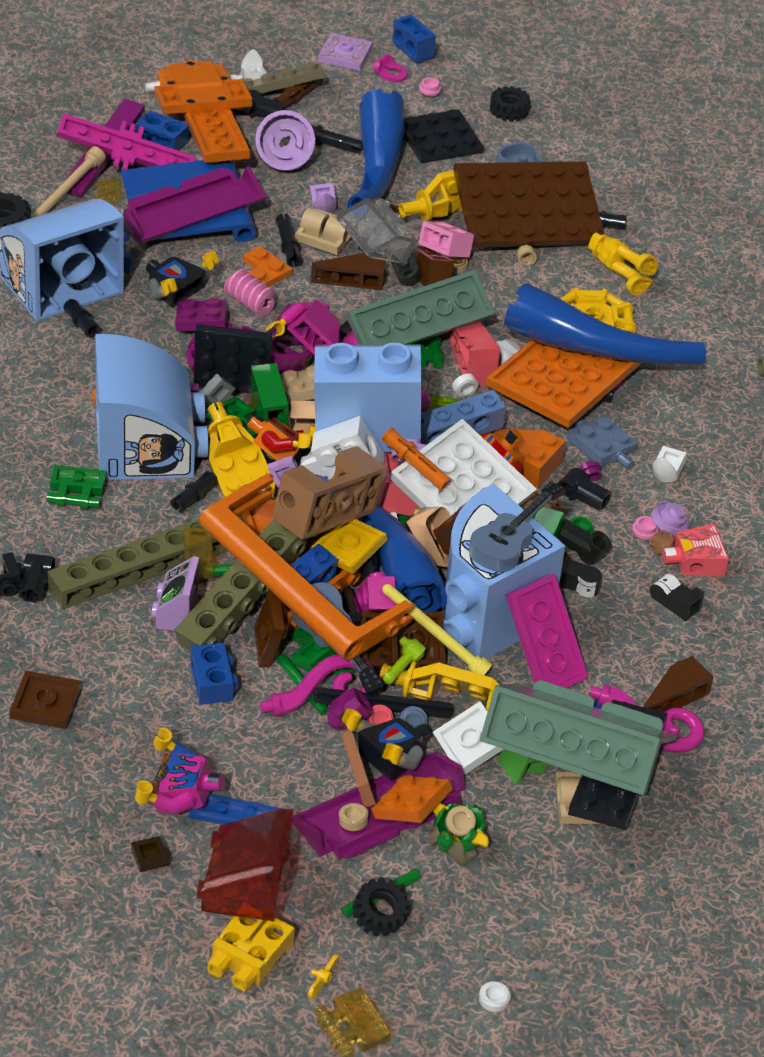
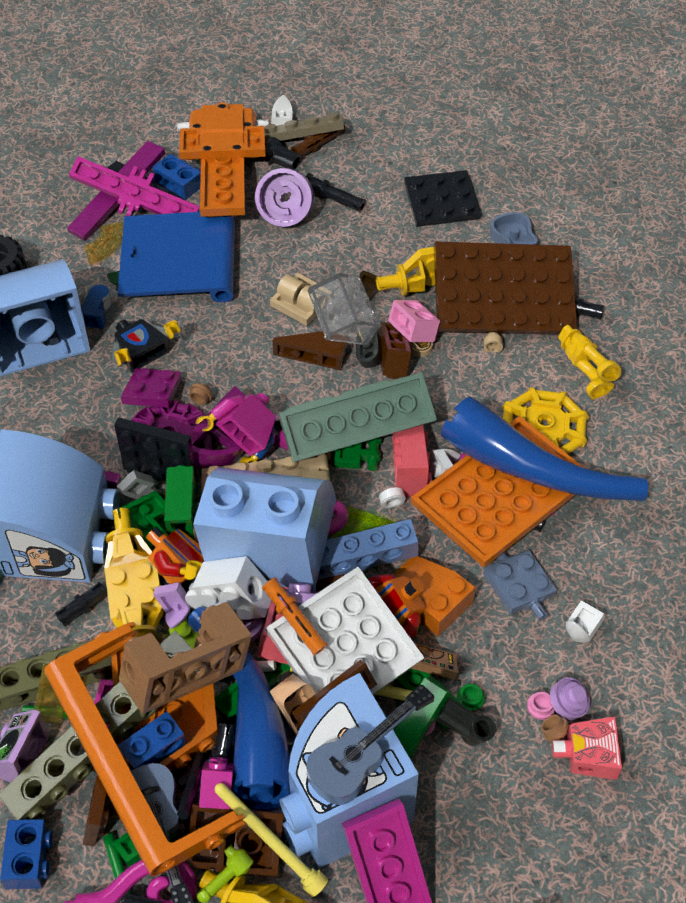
camera: 15 degrees right, 10 degrees up
(81, 318) = (38, 379): black pin -> none
(93, 159) = (100, 202): tan piece -> none
(193, 203) = (183, 259): magenta slope -> none
(250, 292) = (207, 365): bright pink piece -> none
(251, 316) = (200, 393): none -> medium nougat plate
(266, 266) = (234, 340): orange plate -> none
(289, 244) = (262, 312): black pin -> none
(323, 197) = (309, 261): lavender plate -> none
(345, 51) = (375, 99): lavender plate -> none
(352, 544) = (204, 713): yellow plate -> none
(382, 138) = (380, 200): blue brick -> none
(387, 62) = (408, 115): dark pink piece -> none
(414, 38) = (440, 91): blue brick -> none
(430, 87) = (445, 143): bright pink plate -> none
(510, 103) = (518, 159): black tyre -> none
(580, 487) = (480, 642): black piece -> none
(580, 578) = (449, 766): pearl dark grey leg -> none
(592, 469) = (496, 623): magenta plate -> none
(677, 596) = (555, 807): pearl dark grey leg -> none

